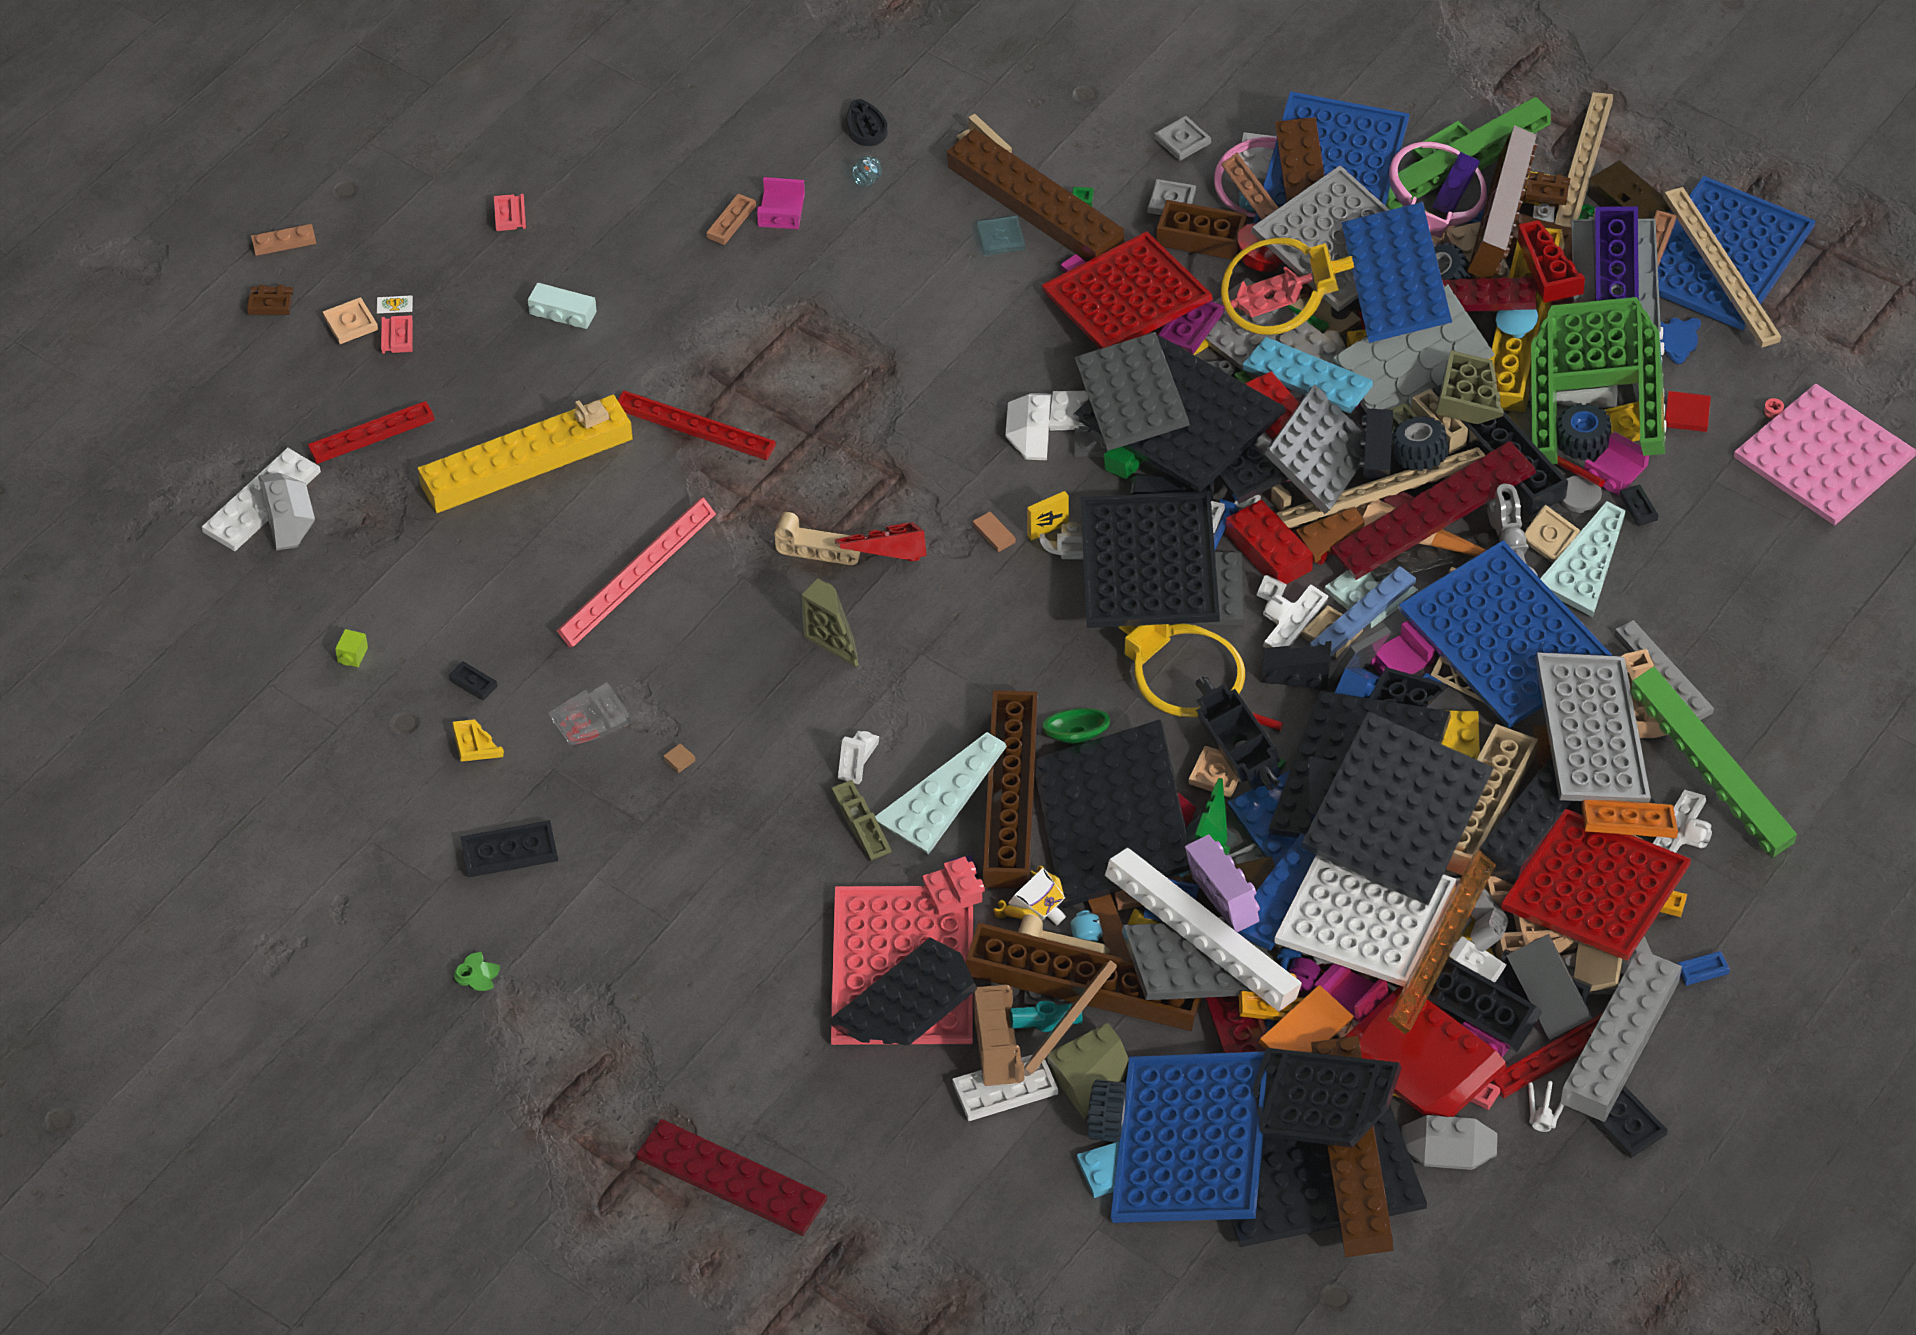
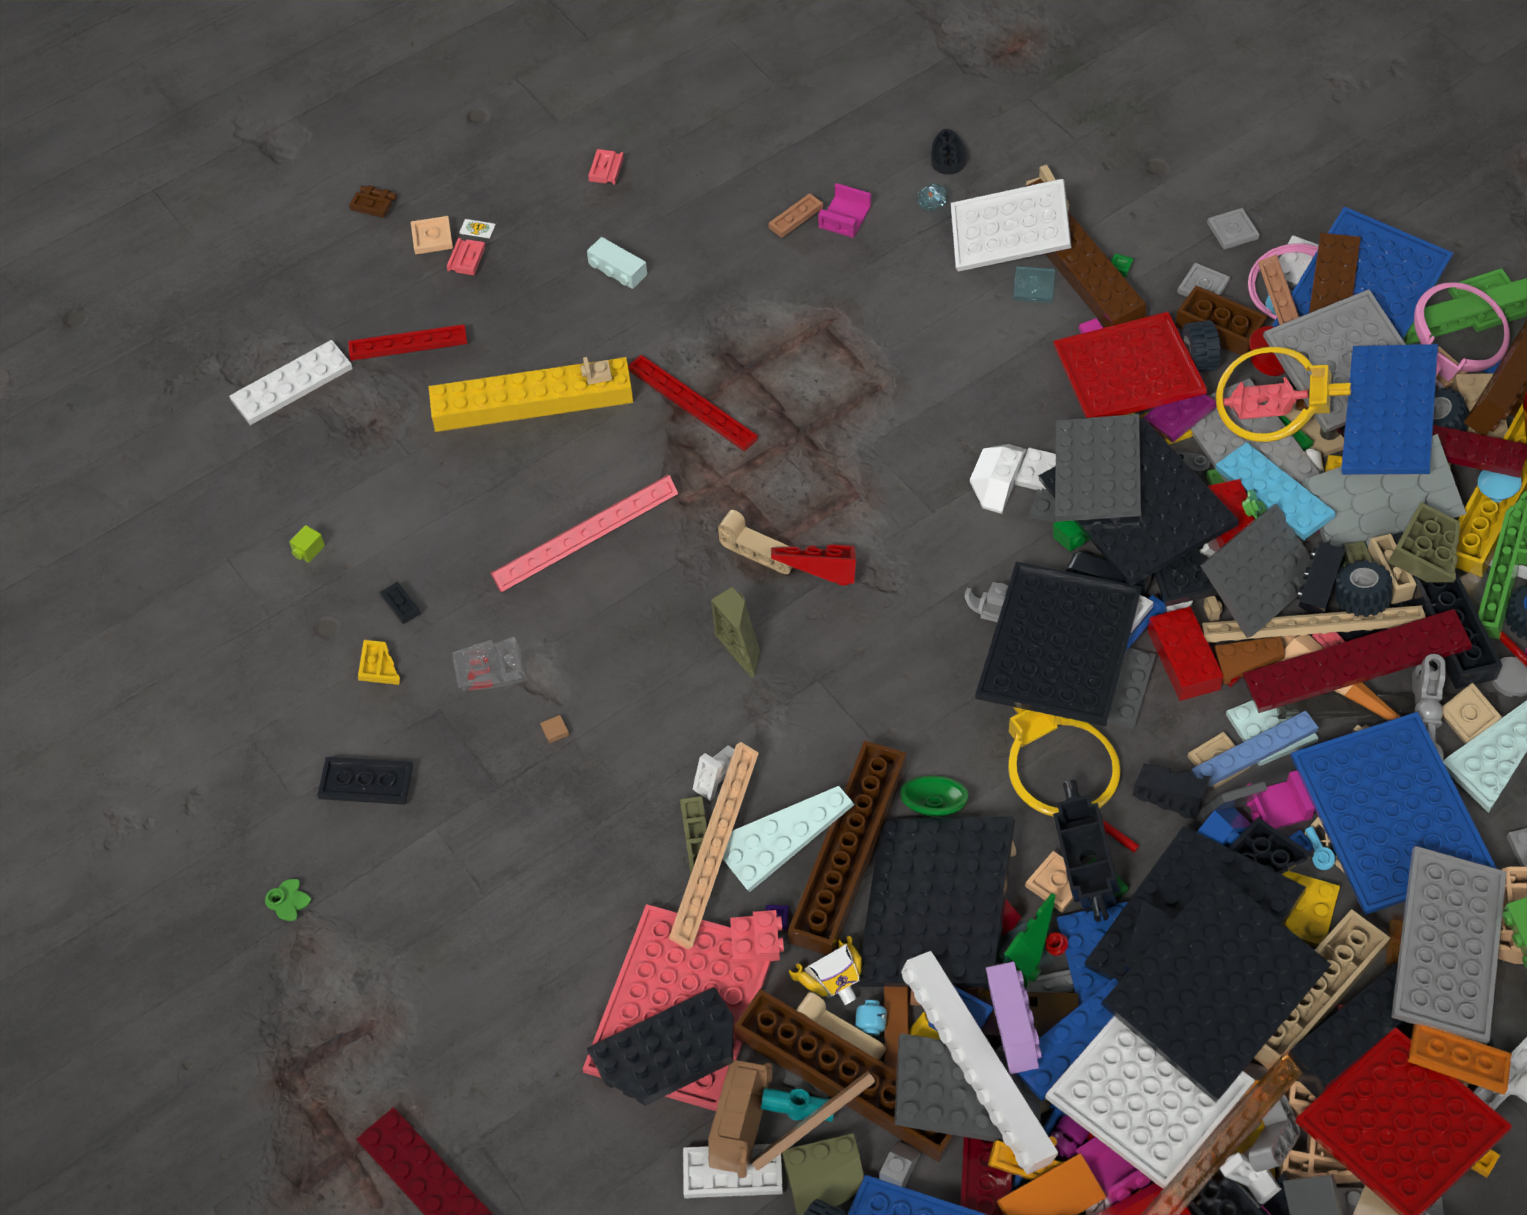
camera: 20 degrees right, 5 degrees up
(283, 239) = (407, 149): nougat plate -> none
(286, 508) = (304, 397): light grey wedge -> none
(882, 817) = (713, 846): none -> light nougat plate
(960, 180) = (1010, 225): none -> white plate
(994, 531) = (927, 574): nougat tile -> none
(1047, 515) = (979, 571): yellow tile -> none
(1157, 1040) = (899, 1164): none -> light grey slope
(1193, 253) = (1202, 344): none -> black wheel
(1234, 818) = (1052, 940): none -> red plate
(1270, 587) = (1172, 701): white plate -> none
(1292, 391) = (1252, 505): none -> bright green plate
(1292, 617) = (1183, 735): white plate -> none
(1456, 183) = (1480, 330): dark purple plate -> none
(1456, 689) = (1323, 857): none -> medium azure plate

